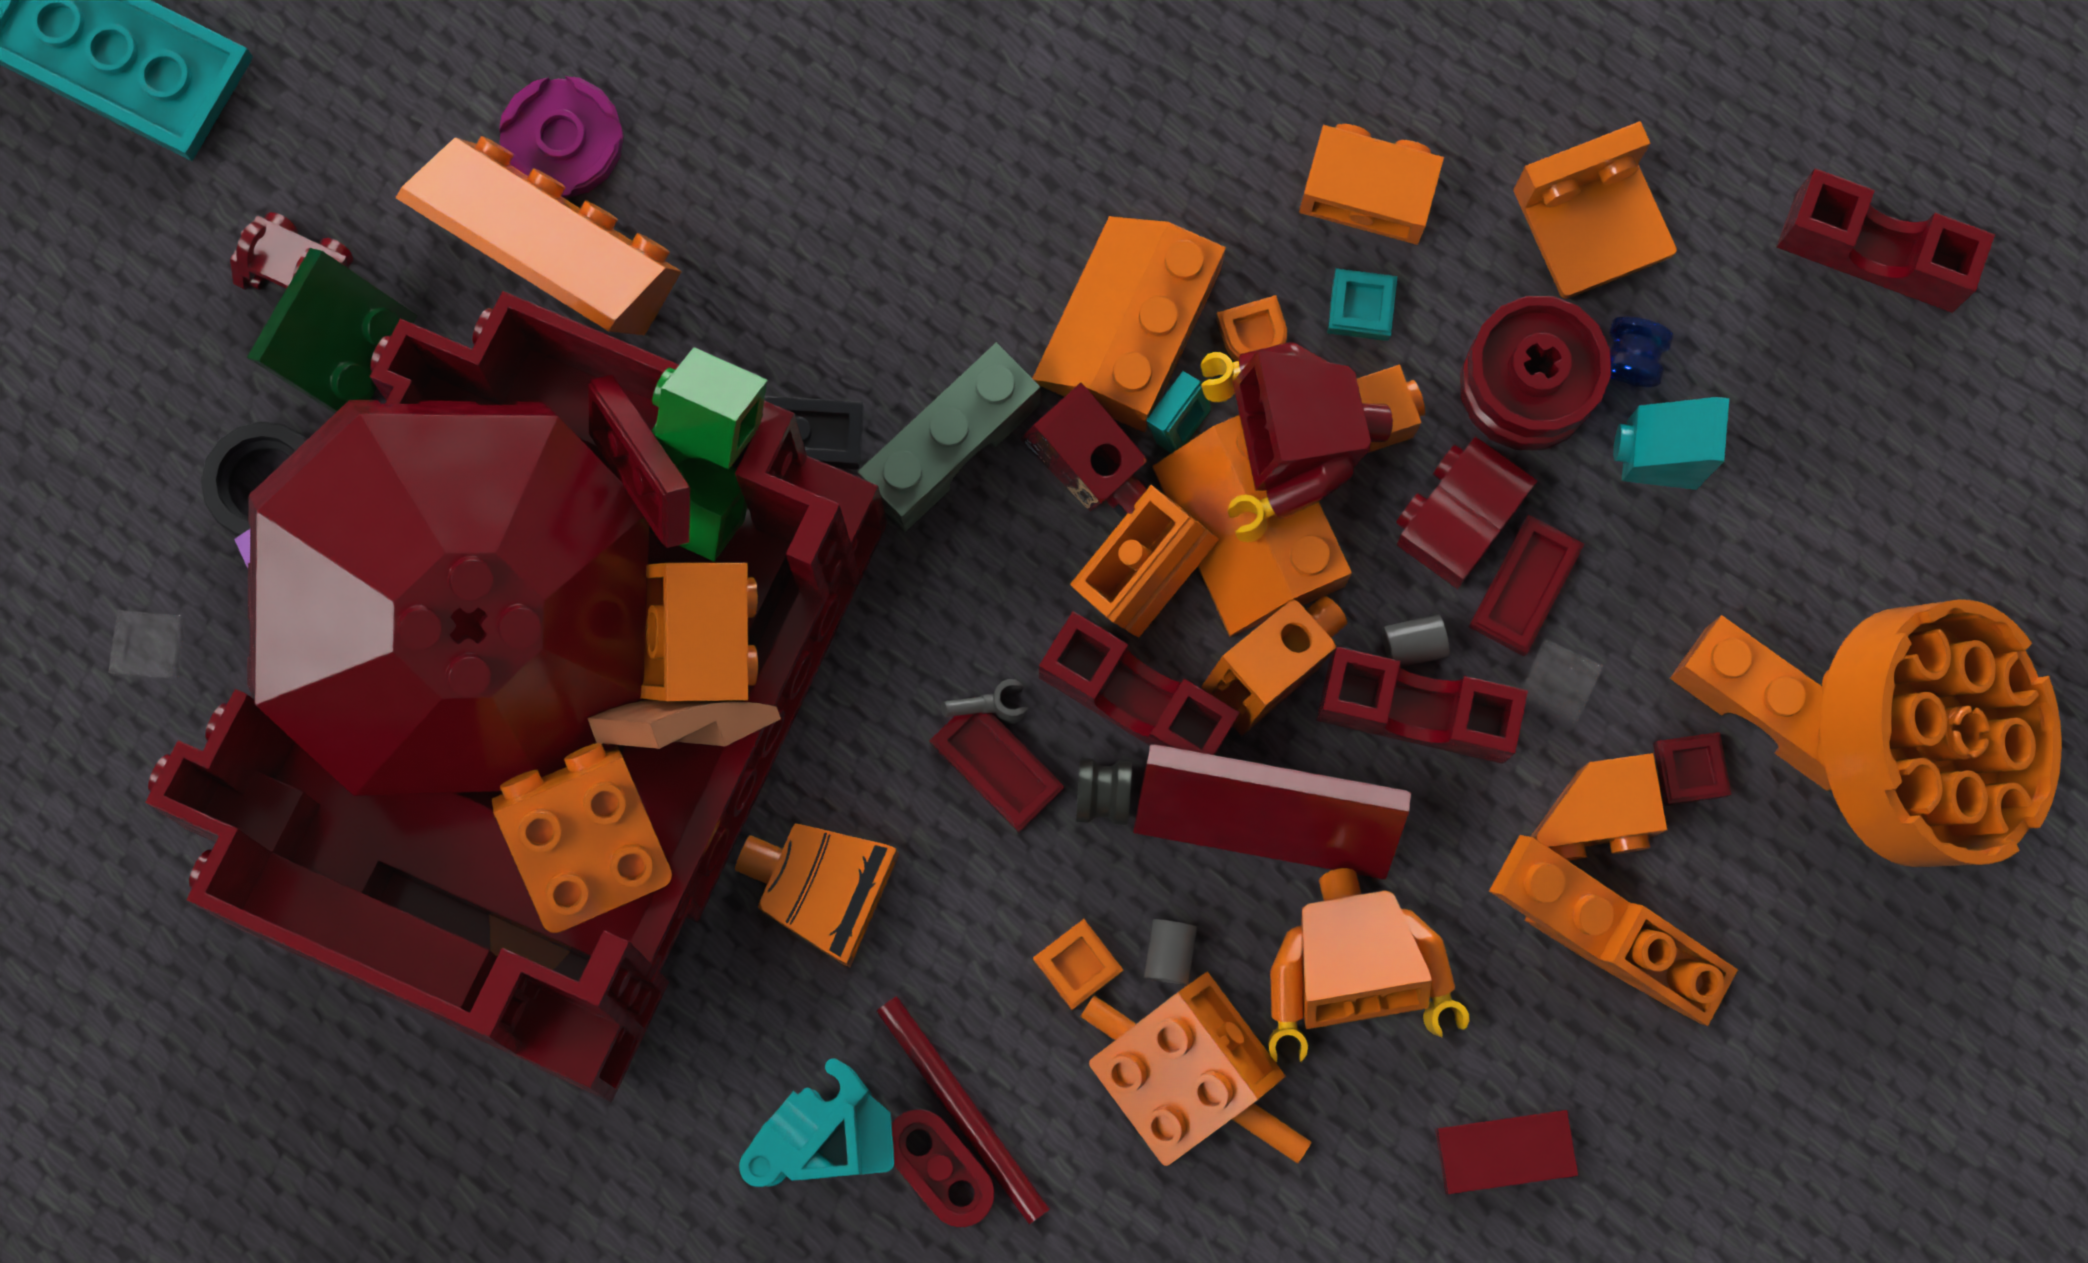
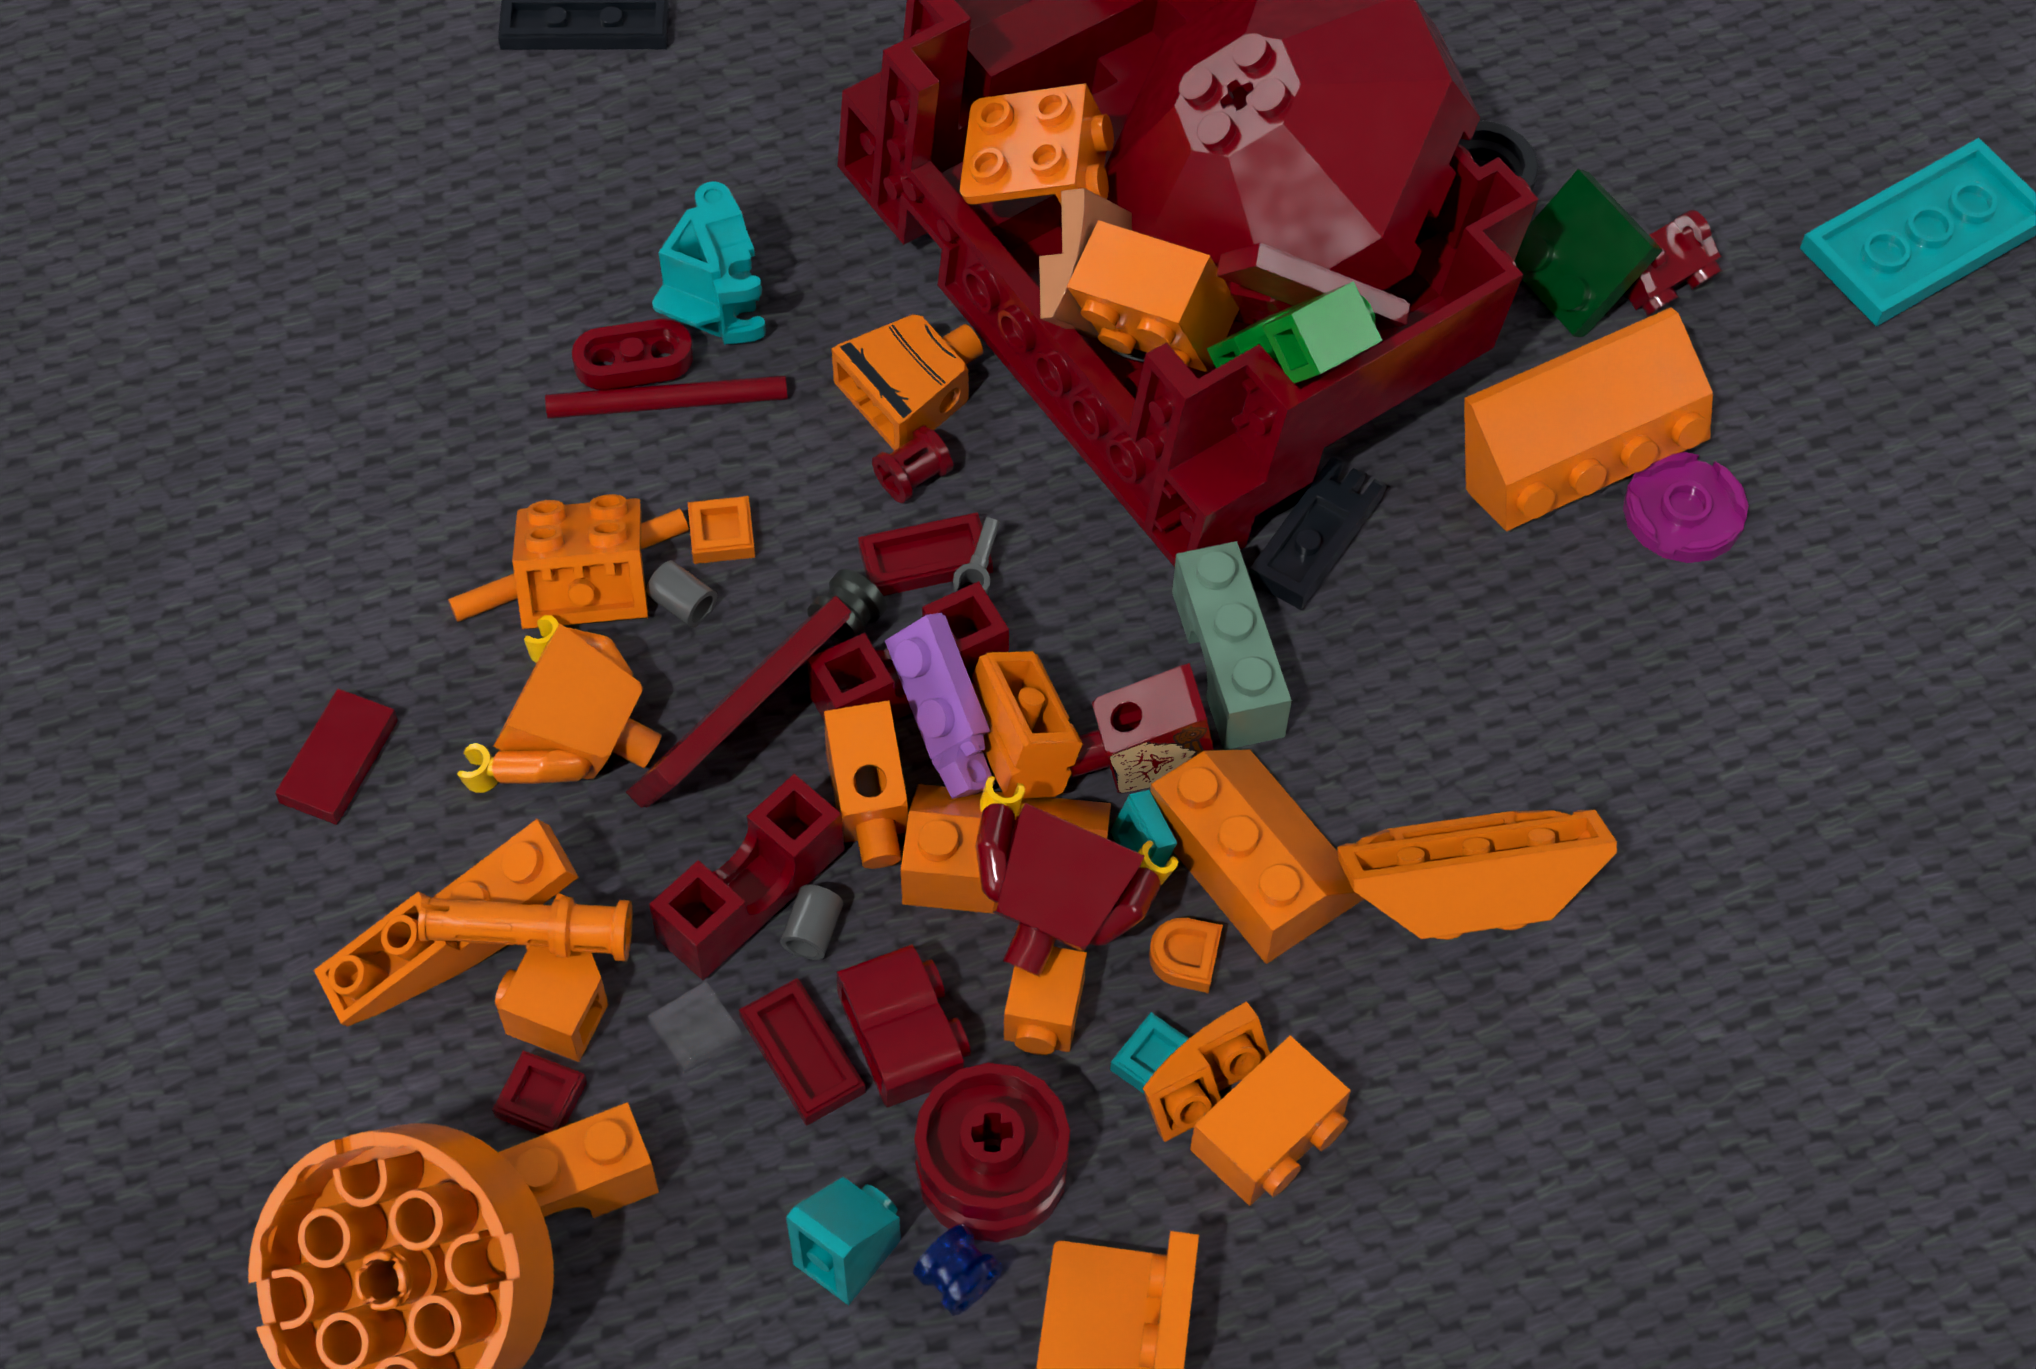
camera: 120 degrees right, 20 degrees down
(914, 826) = (912, 463): none -> dark red bush
(1049, 133) = (1478, 869): none -> orange wedge
(1170, 634) = (942, 702): none -> medium lavender hinge
(1382, 257) = (1201, 1067): none -> orange slope
(1581, 809) = (559, 926): none -> orange pin

